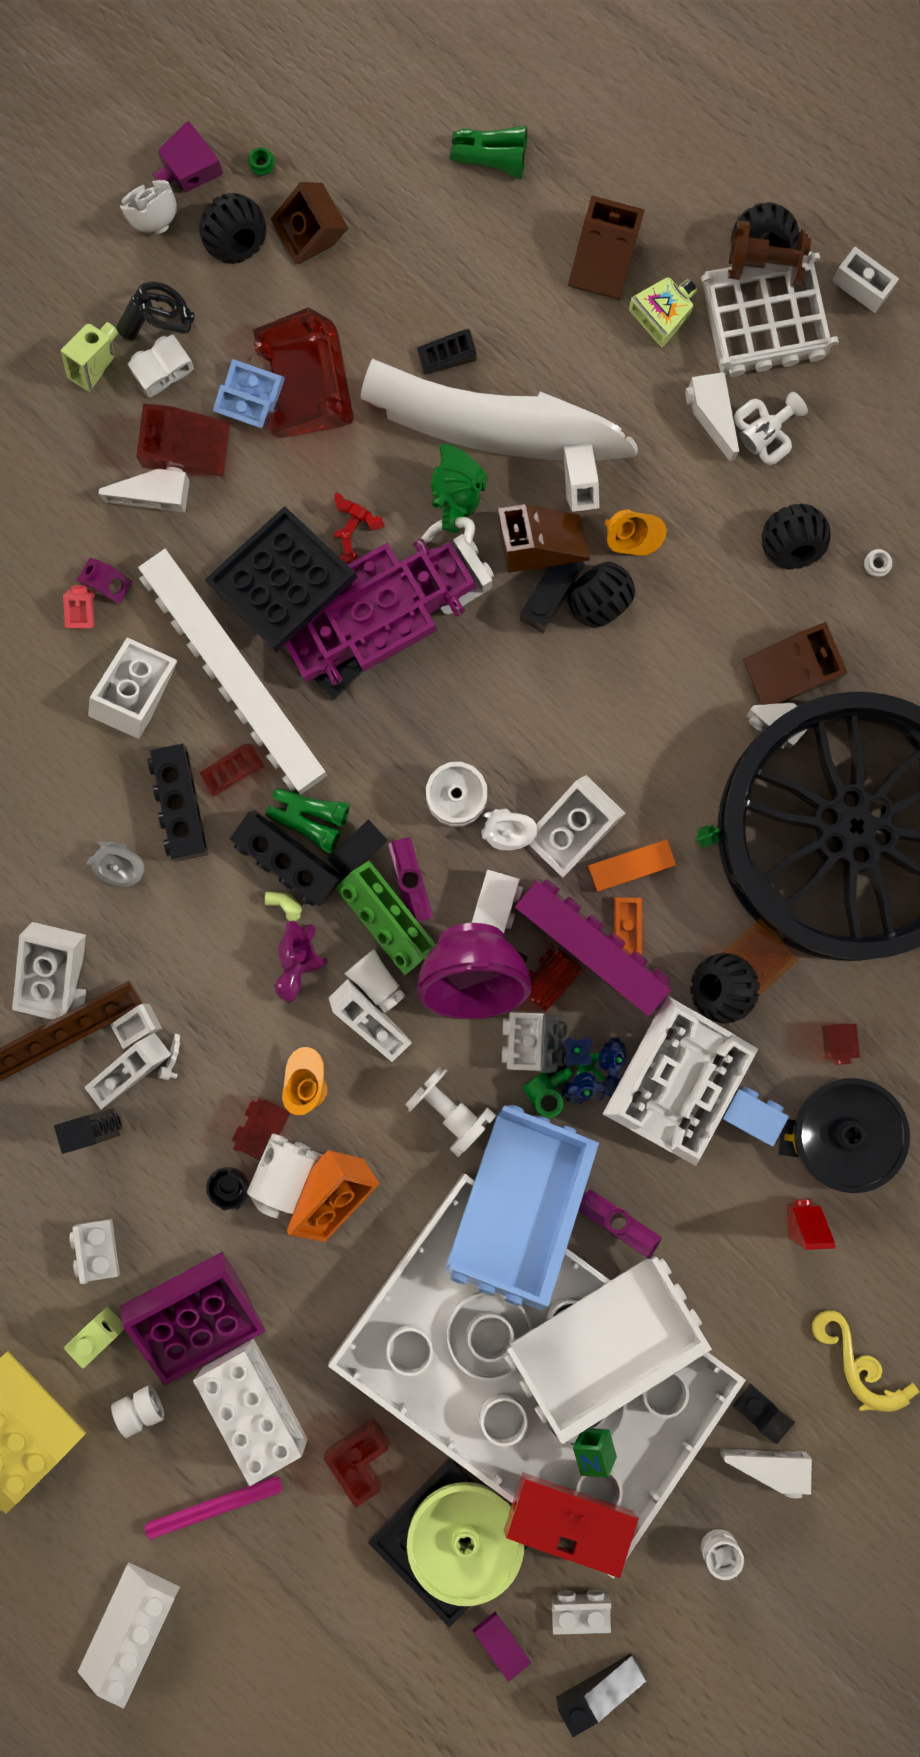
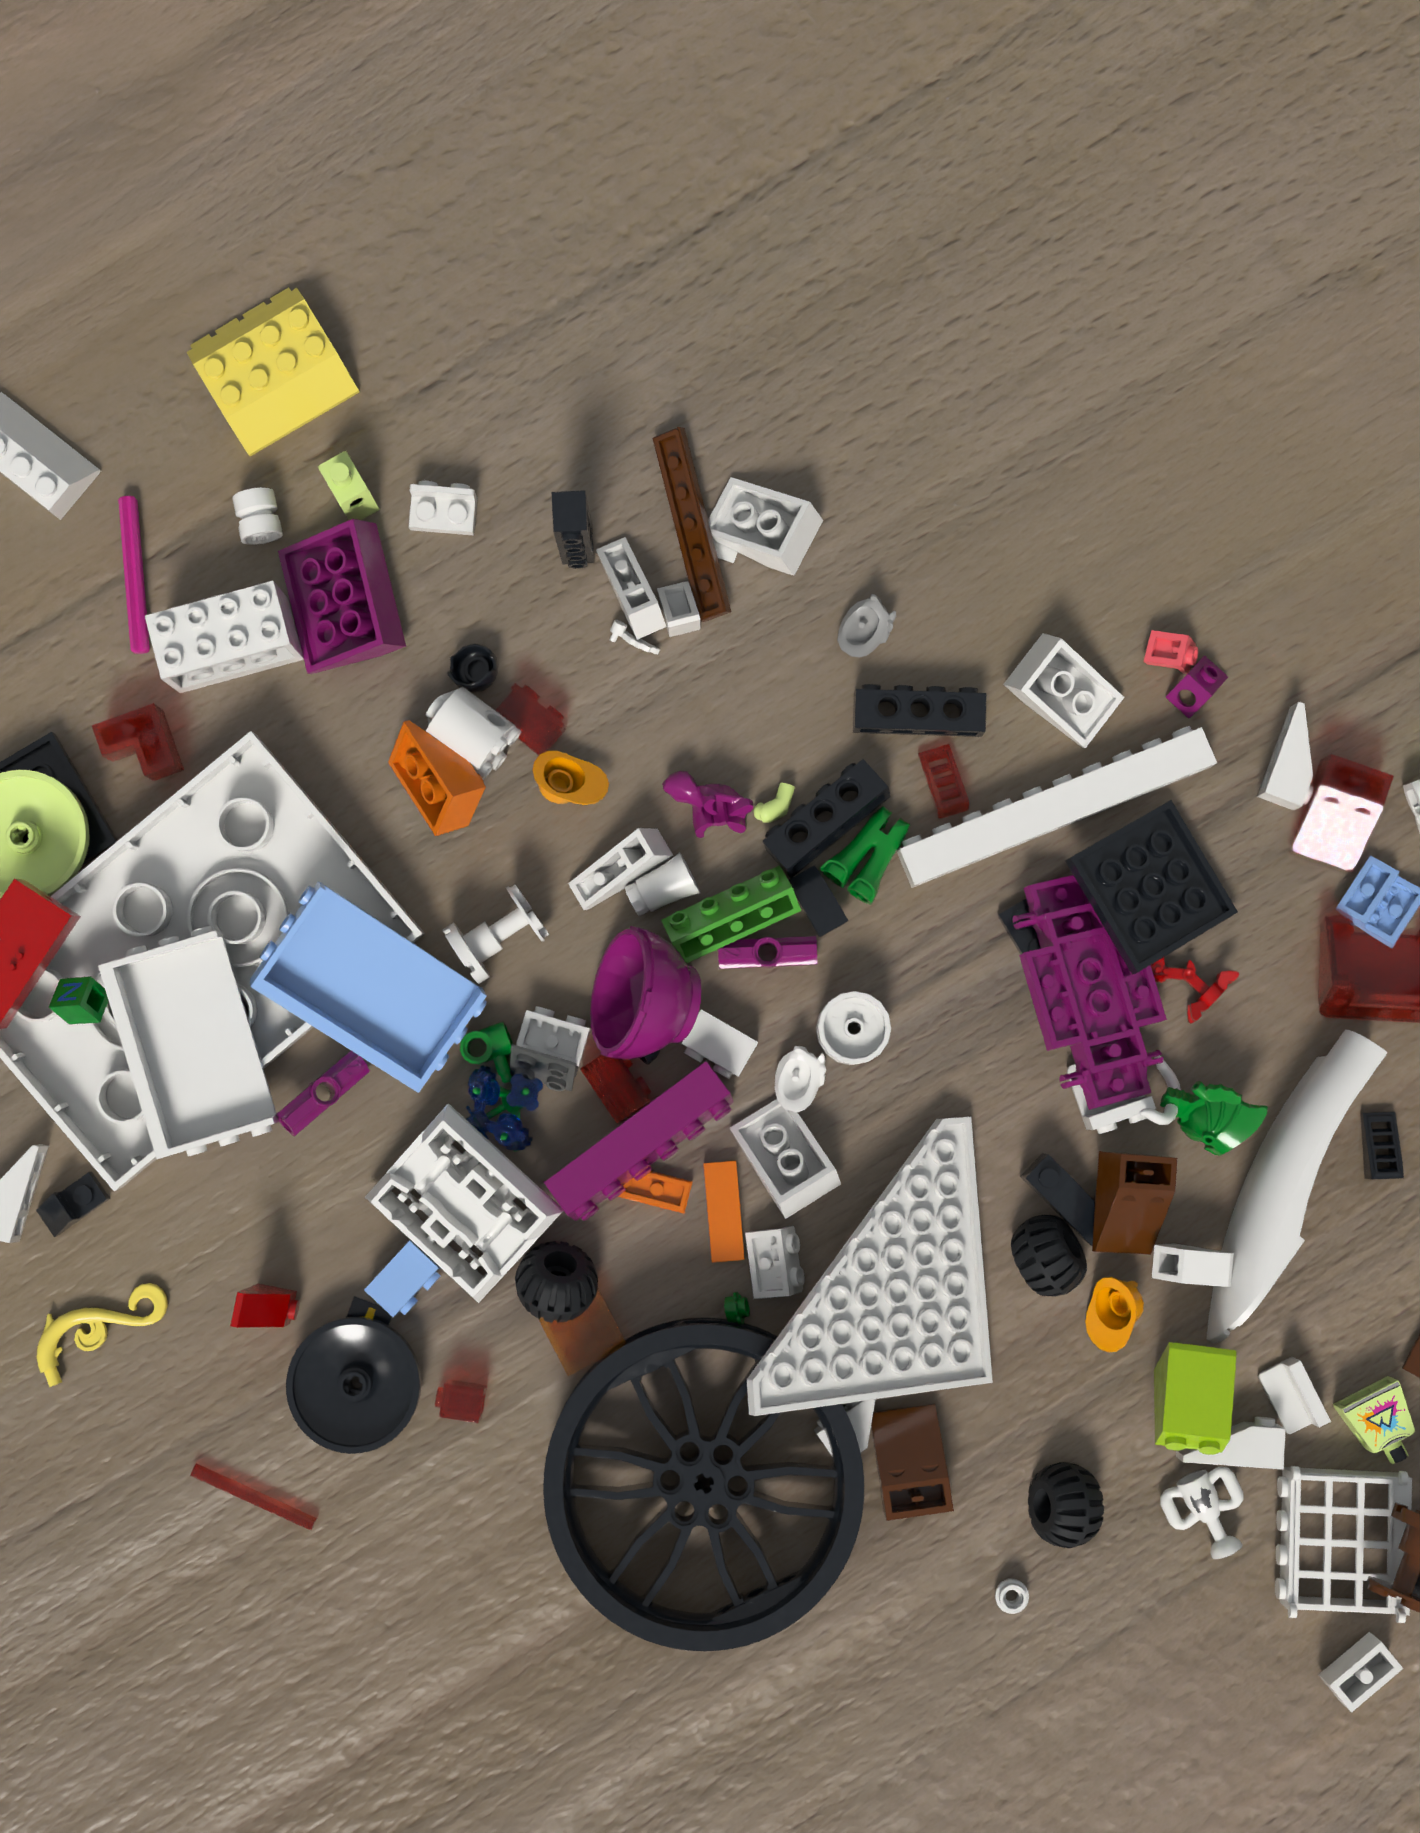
camera: 105 degrees right, 0 degrees up
(663, 378) = (1293, 1395): none -> white panel
(663, 814) = (774, 1262): none -> white bracket
(668, 703) = (899, 1299): none -> white plate
(686, 452) = (1194, 1397): none -> lime slope

